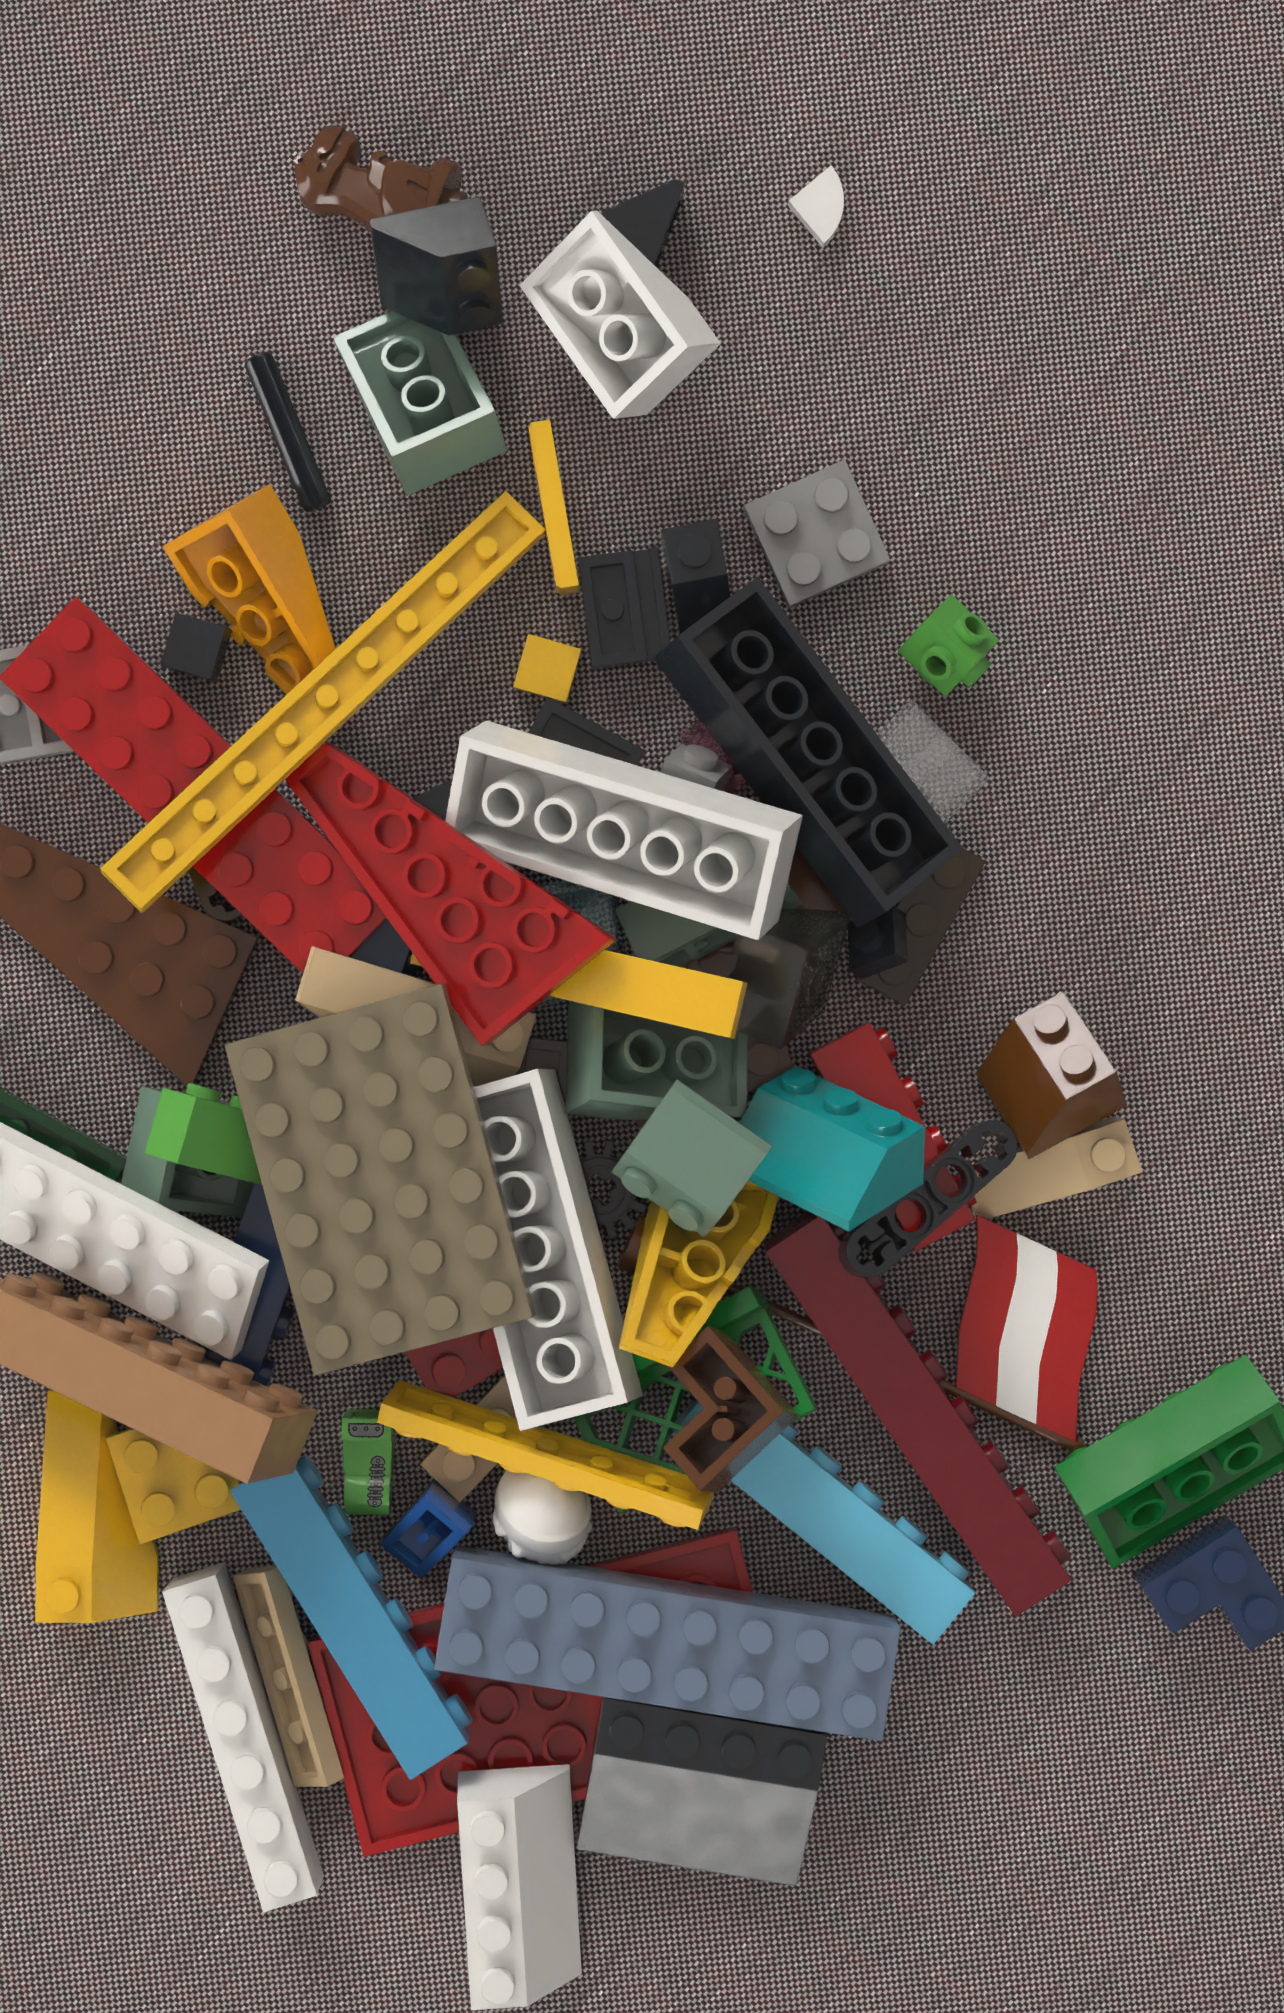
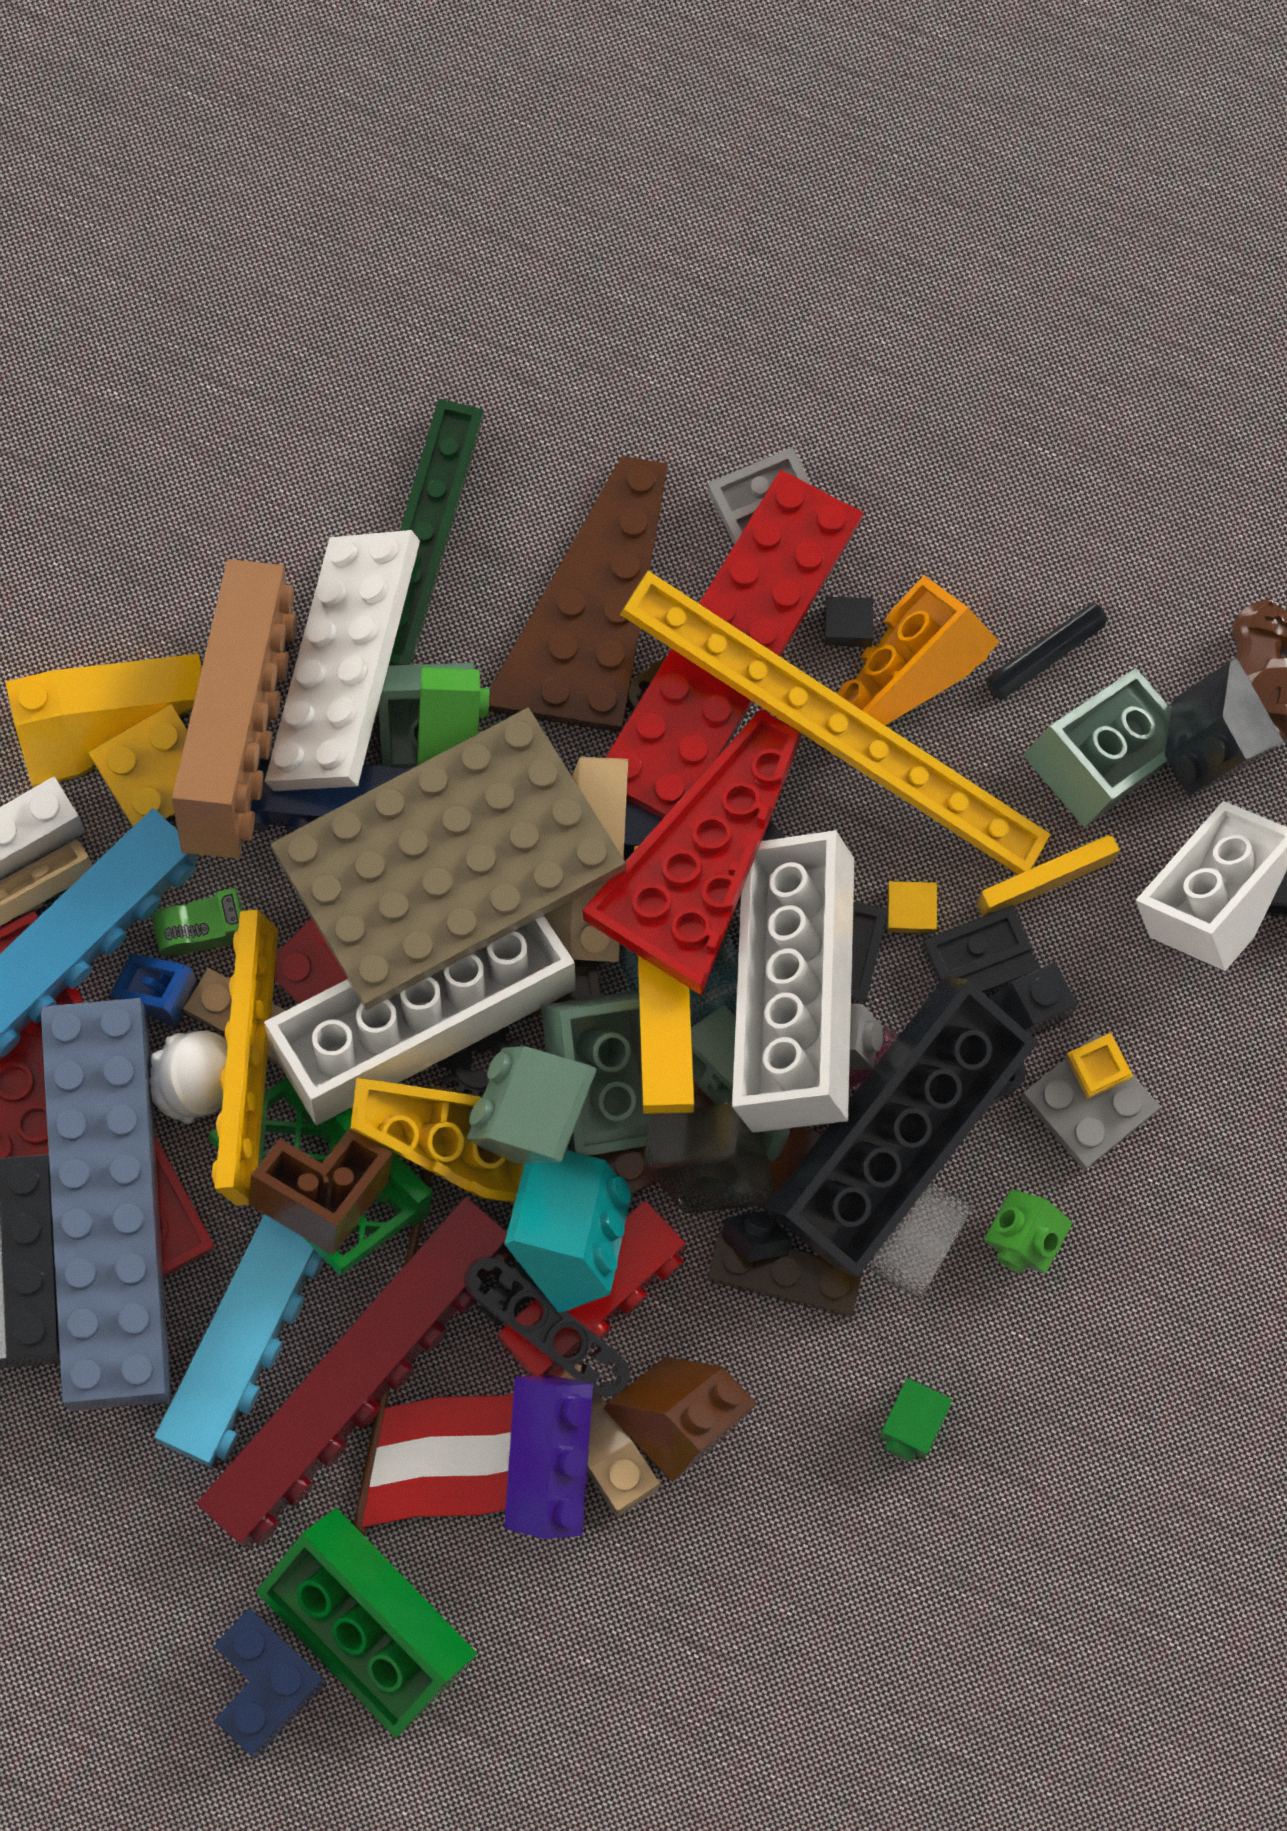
camera: 70 degrees right, 15 degrees down
(786, 514) = (1099, 1066): none -> yellow tile
(1064, 1230) = (548, 1456): none -> dark purple brick
(1118, 826) = (914, 1421): none -> green brick

